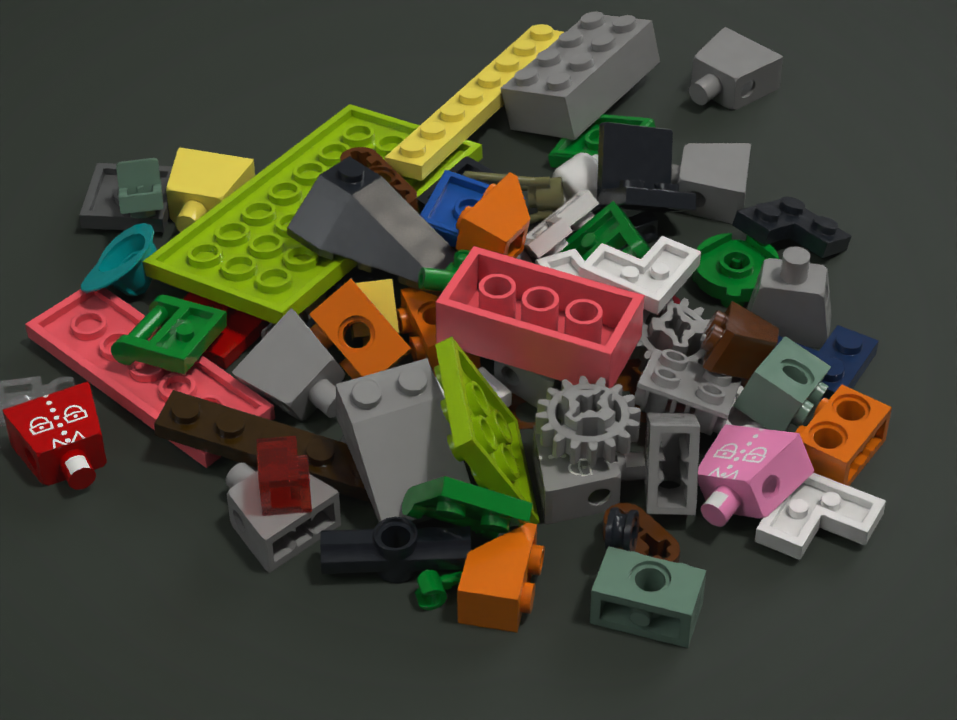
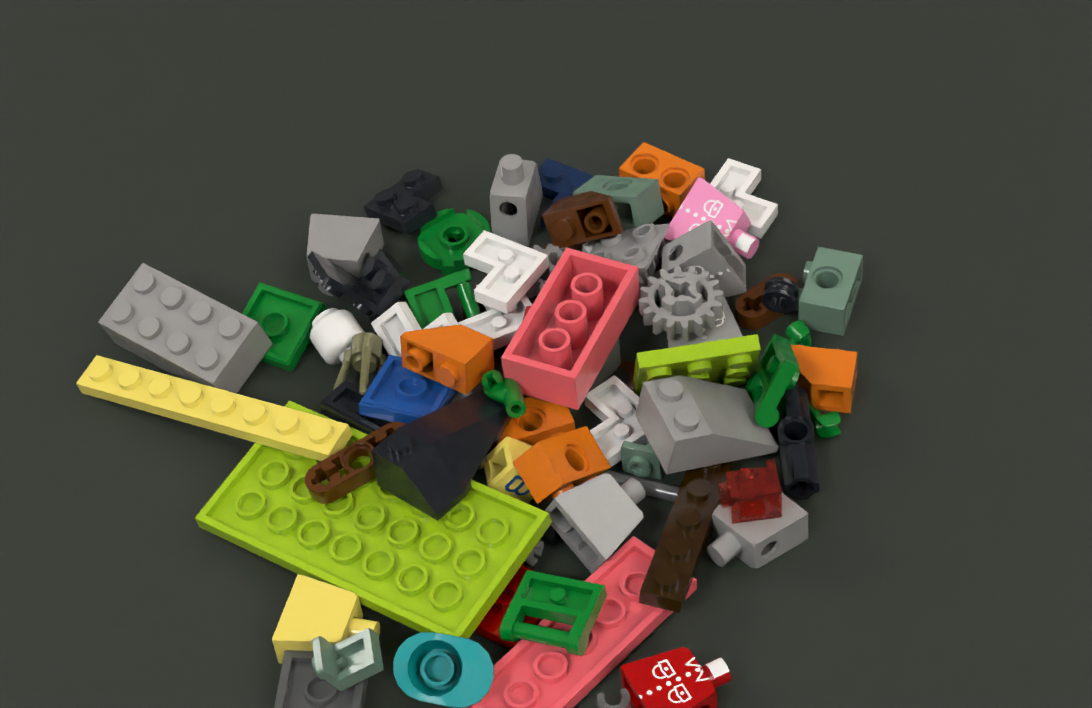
camera: 85 degrees left, 5 degrees up
(574, 569) = (799, 333): none -> green hand
(734, 71) = (178, 235): light grey torso -> none

